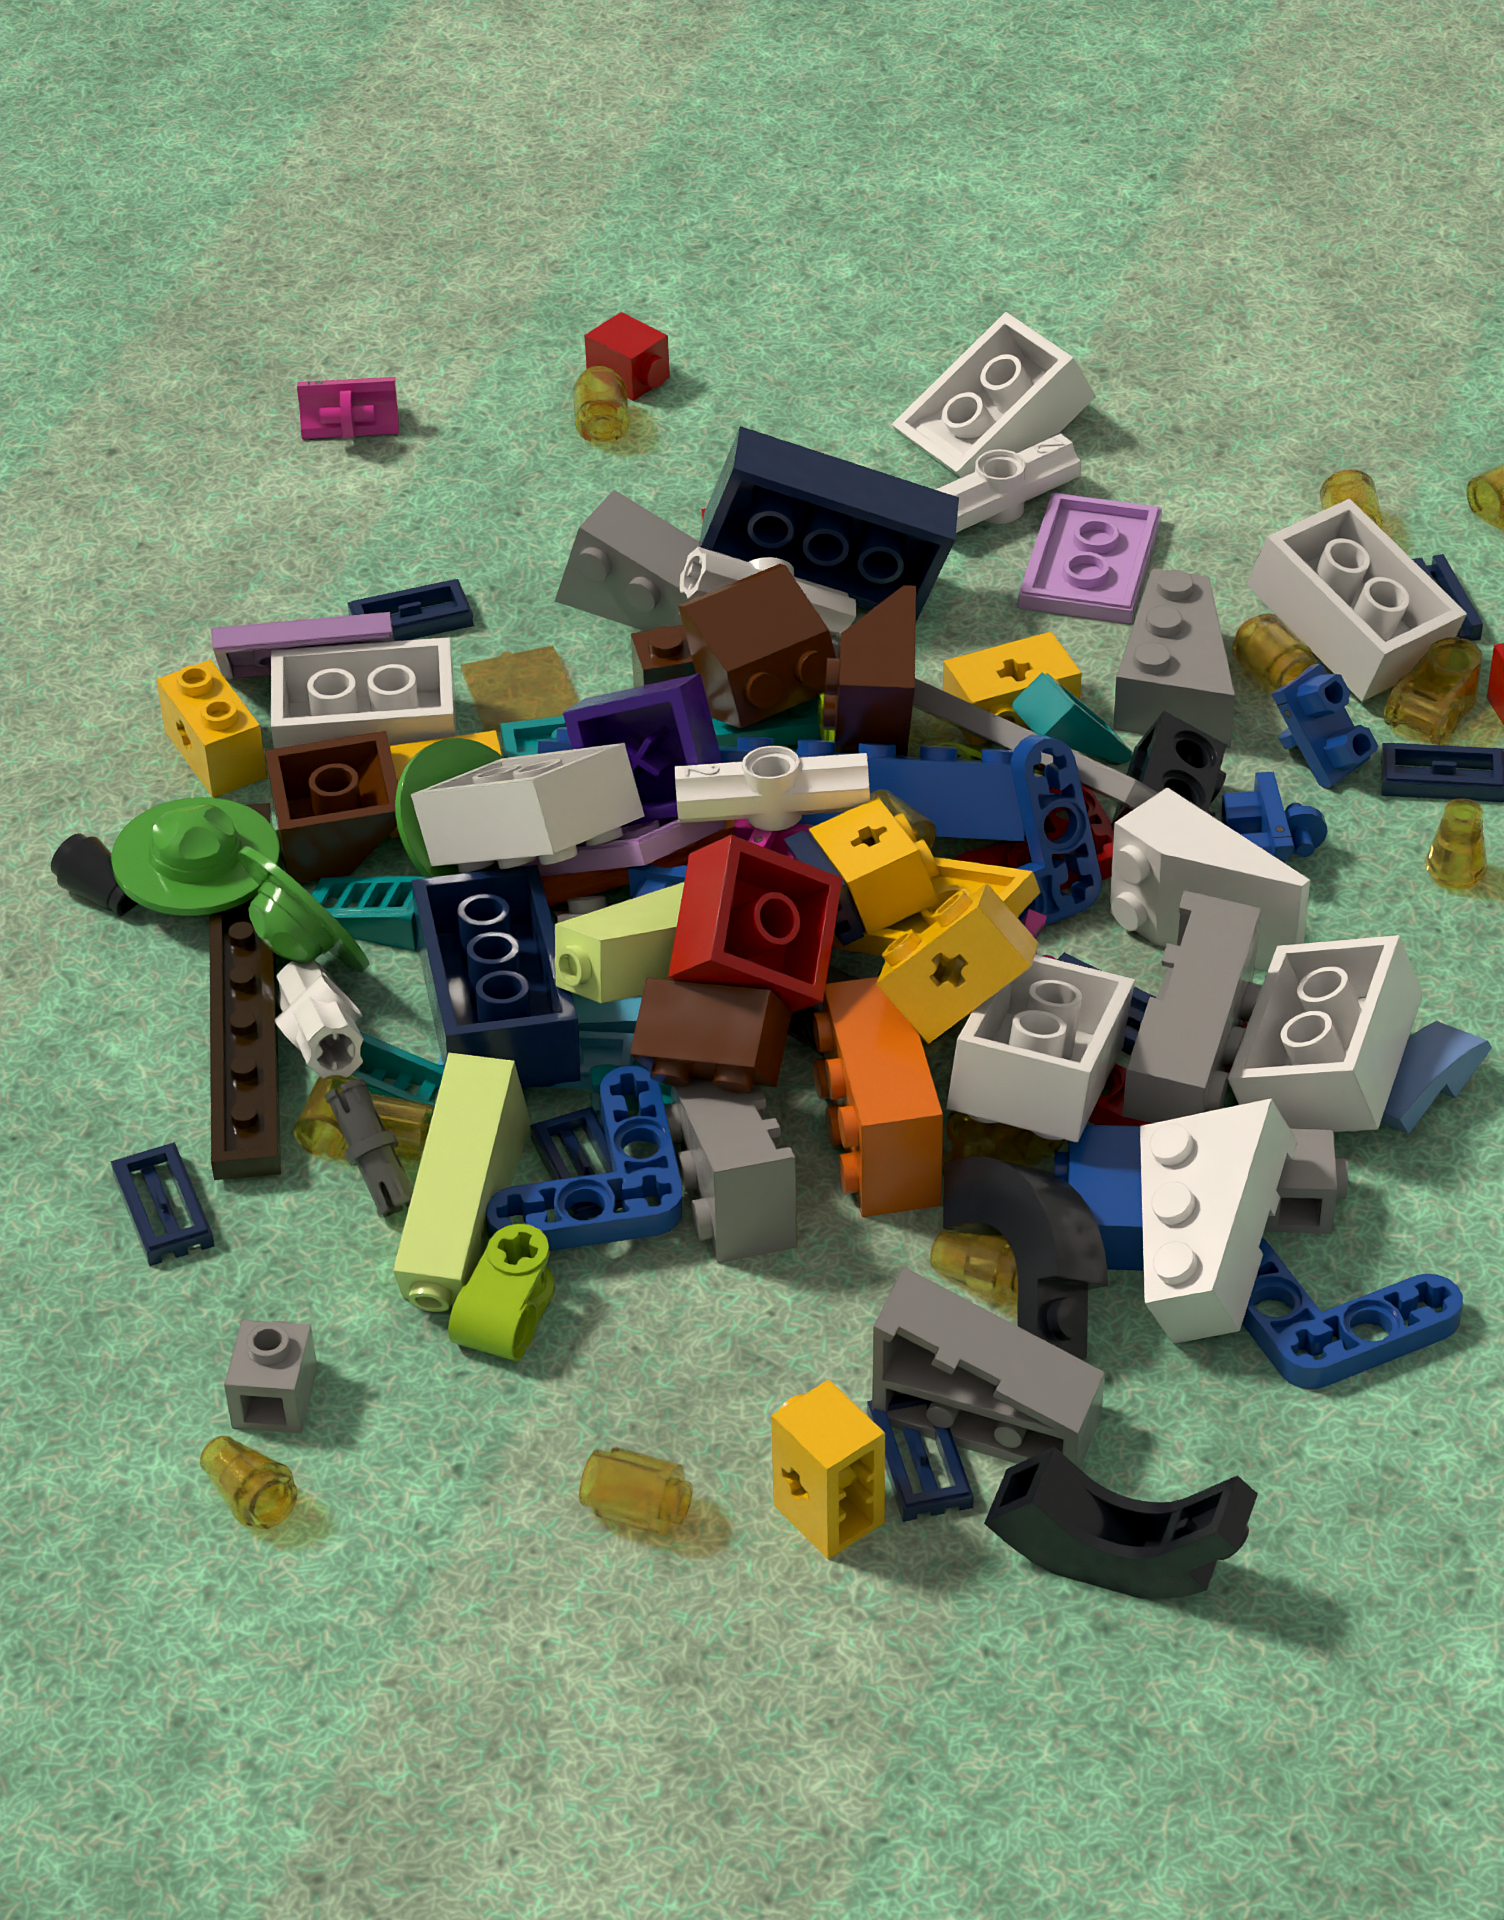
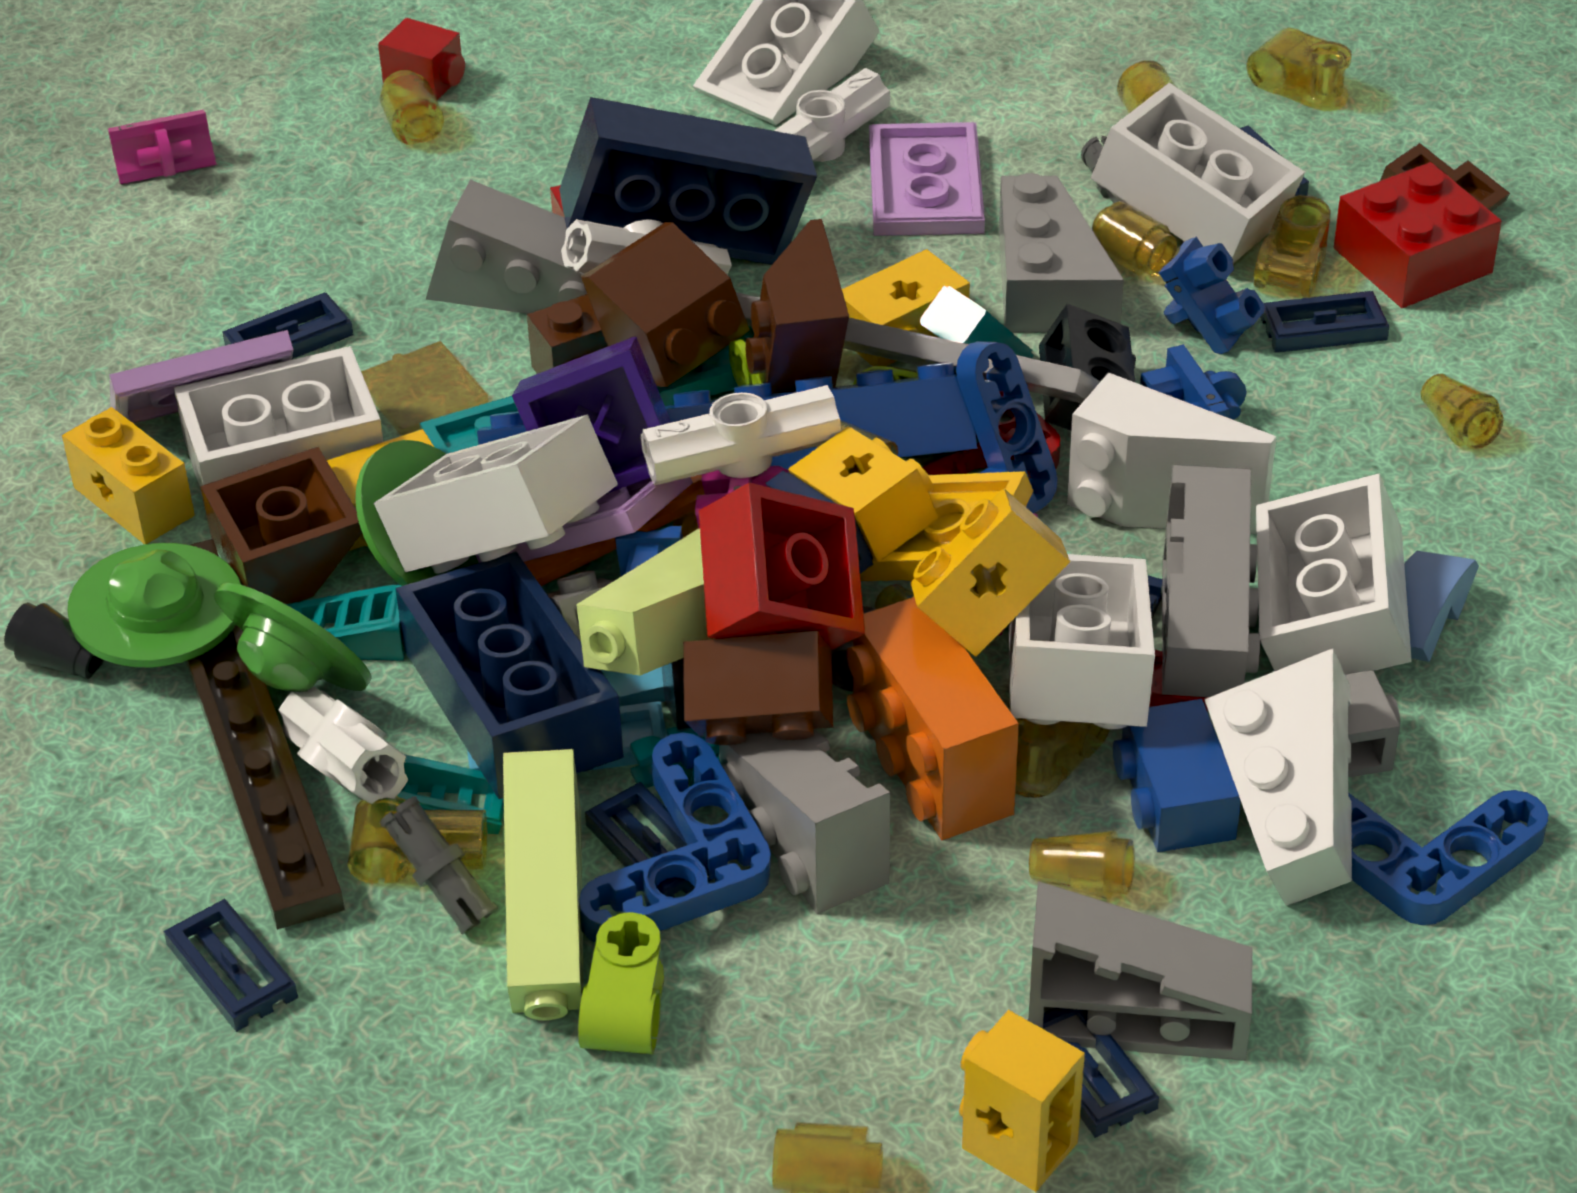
camera: 15 degrees left, 0 degrees up
(271, 1376) = (410, 1121): light grey brick -> none
(1050, 1235) = (1145, 813): black arch -> none
(1113, 1541) = (1324, 1115): black arch -> none
(1458, 848) = (1373, 385): clear yellow cone -> none

